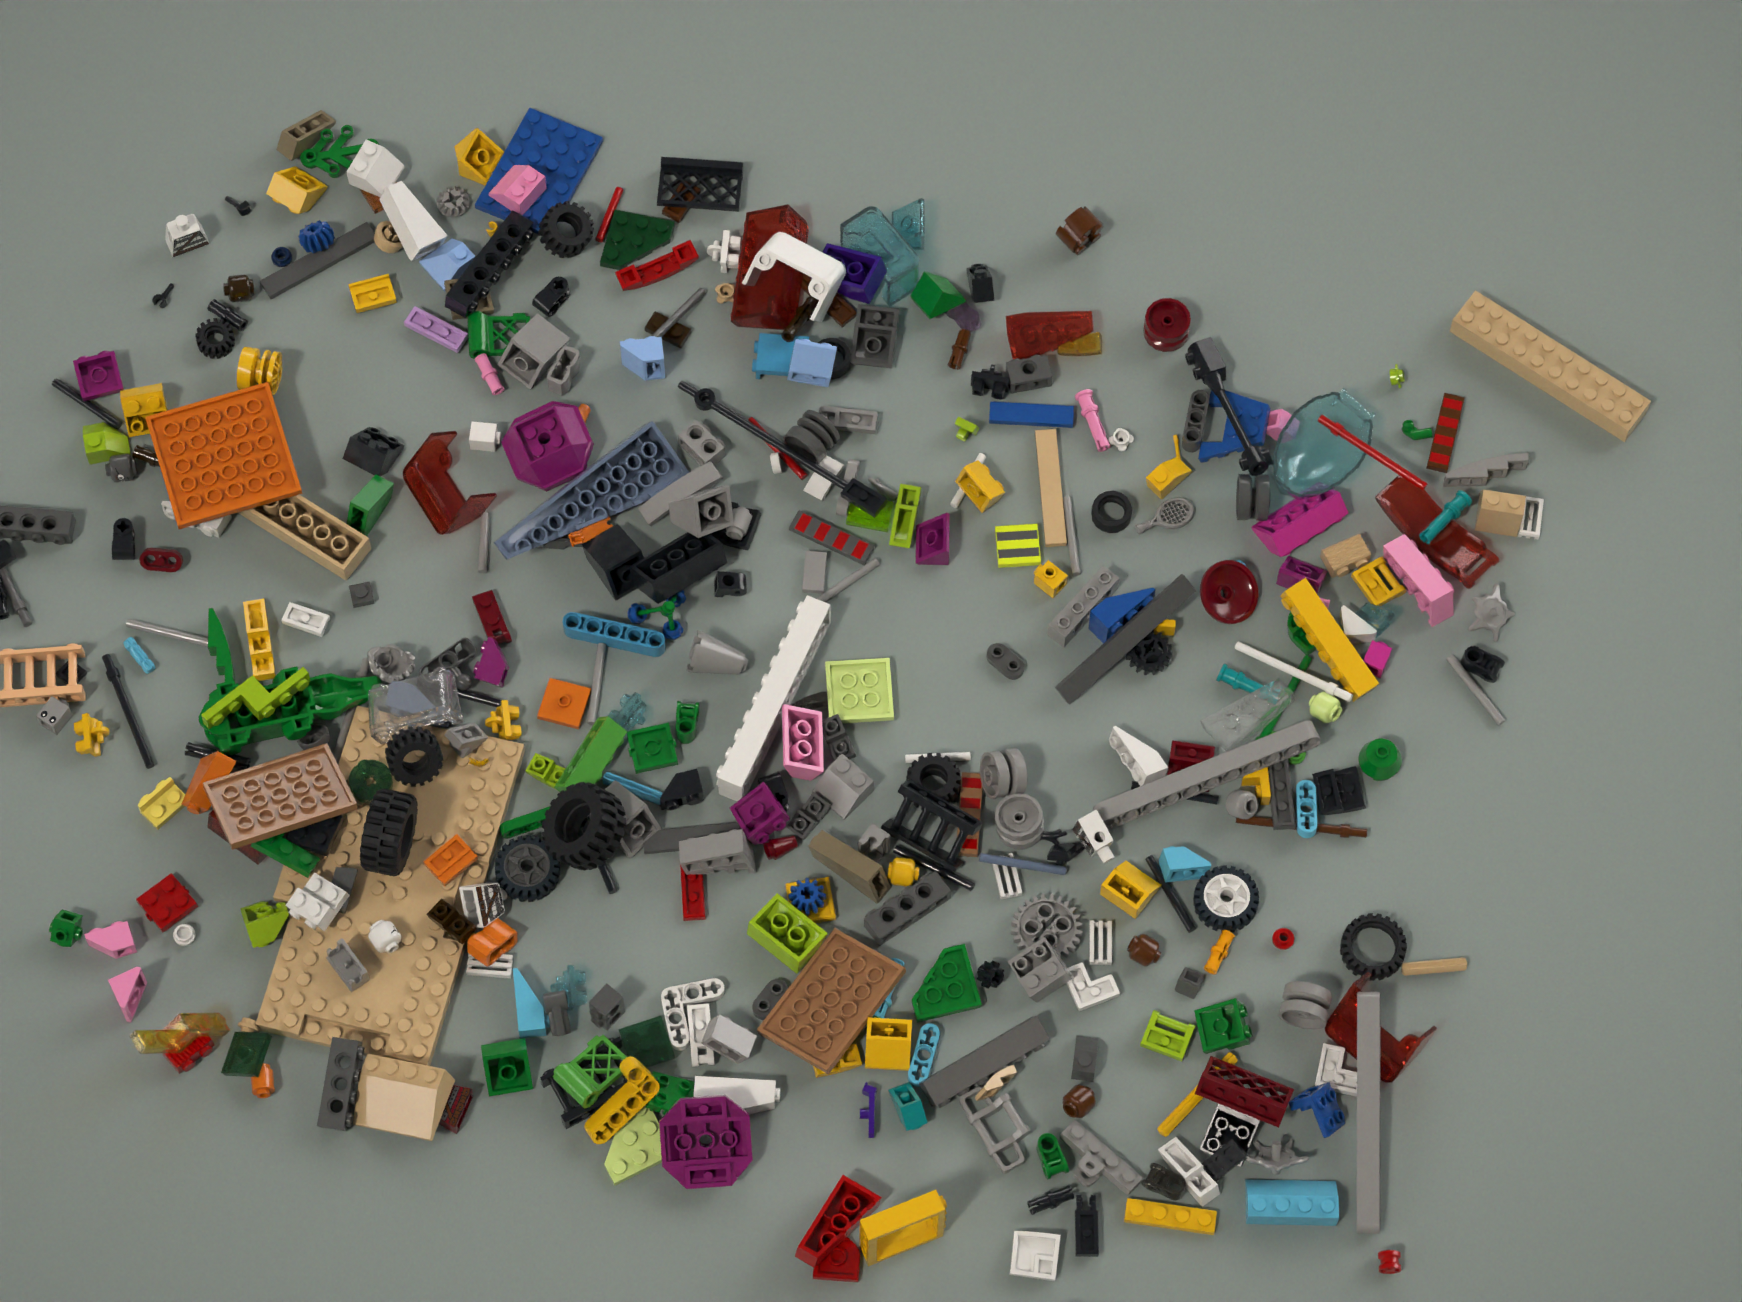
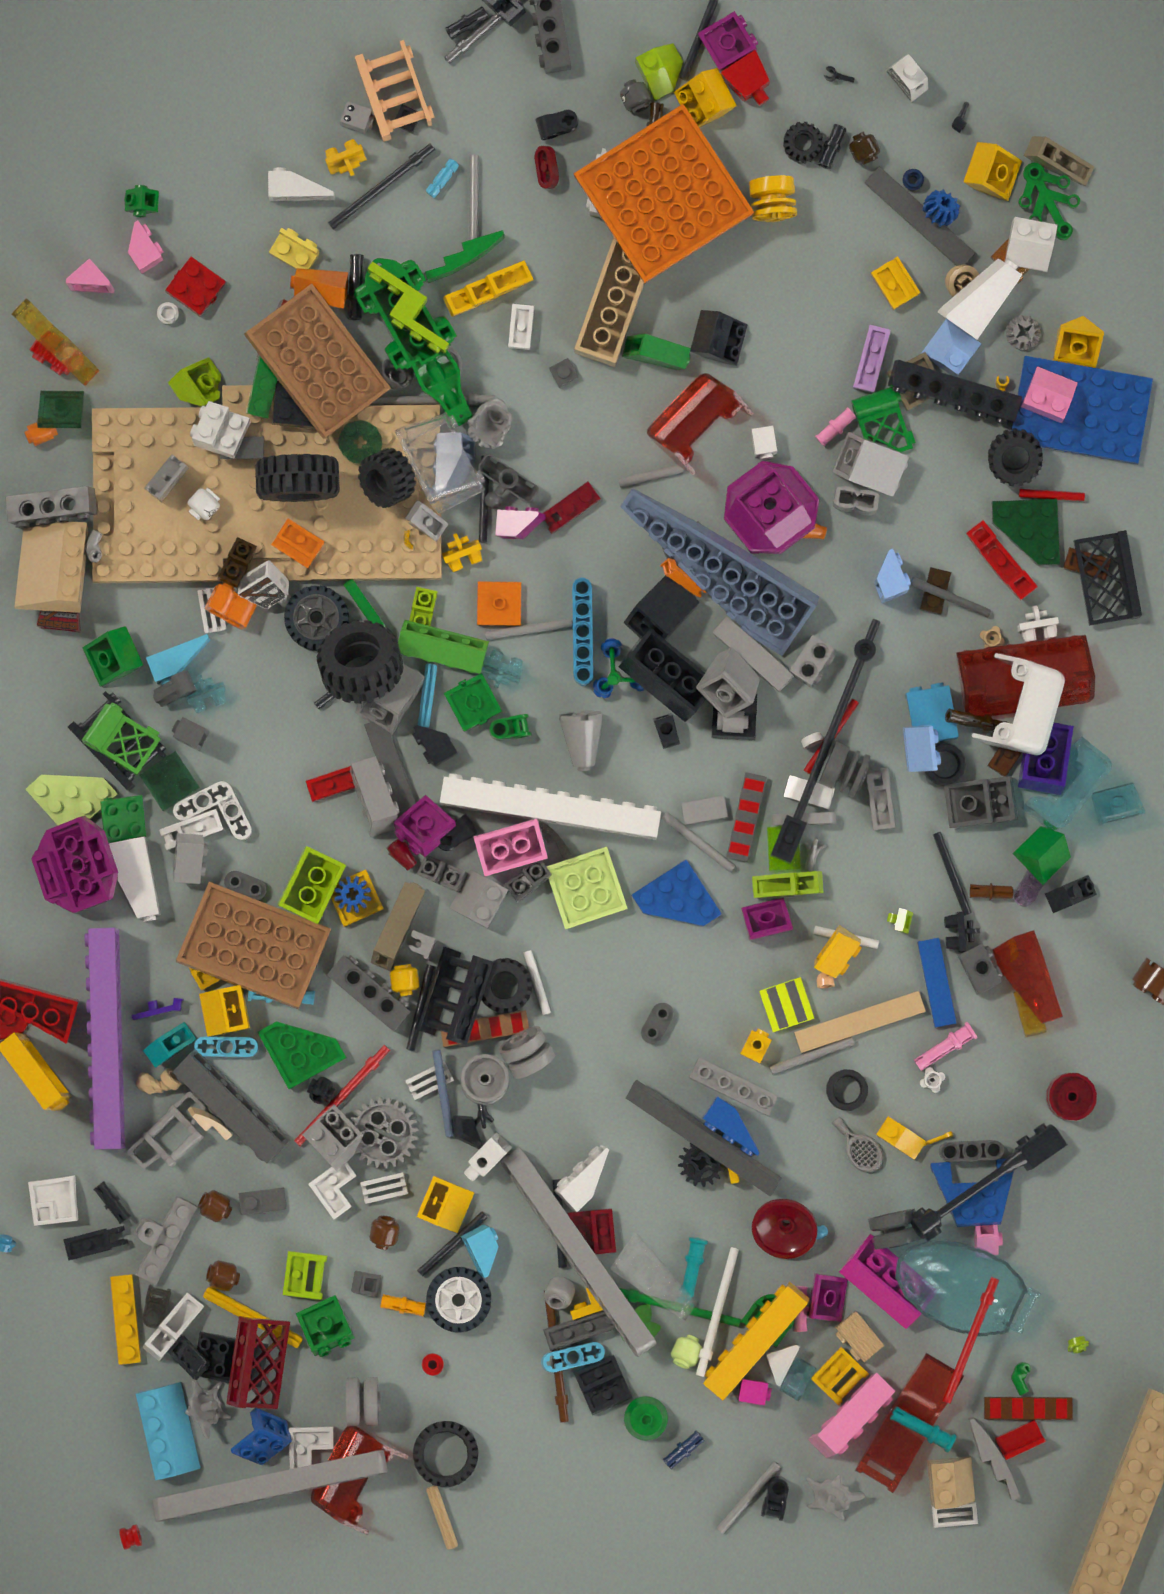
camera: 75 degrees right, 20 degrees up
(101, 787) = (290, 186): none -> white slope
(139, 367) = (748, 78): none -> red torso
(248, 1025) = (90, 401): tan plate -> none
(398, 1052) = (92, 547): none -> light grey arm
(552, 296) = (934, 462): black piece -> none
(602, 1124) = (107, 784): yellow beam -> none
(886, 1160) = (106, 1038): none -> medium lavender brick
(890, 614) = (678, 897): none -> blue plate
(920, 379) = (952, 873): none -> black bar
(942, 1135) = (150, 1085): none -> tan arm
(977, 925) = (372, 1063): none -> red bar
(1004, 506) = (824, 981): none -> light nougat hinge
(1051, 1160) = (150, 1195): green piece -> none
(1149, 1110) = (222, 1275): none -> reddish brown head
(1417, 733) = (683, 1449): none -> dark blue pin
(1473, 442) = (1019, 1439): none -> red panel

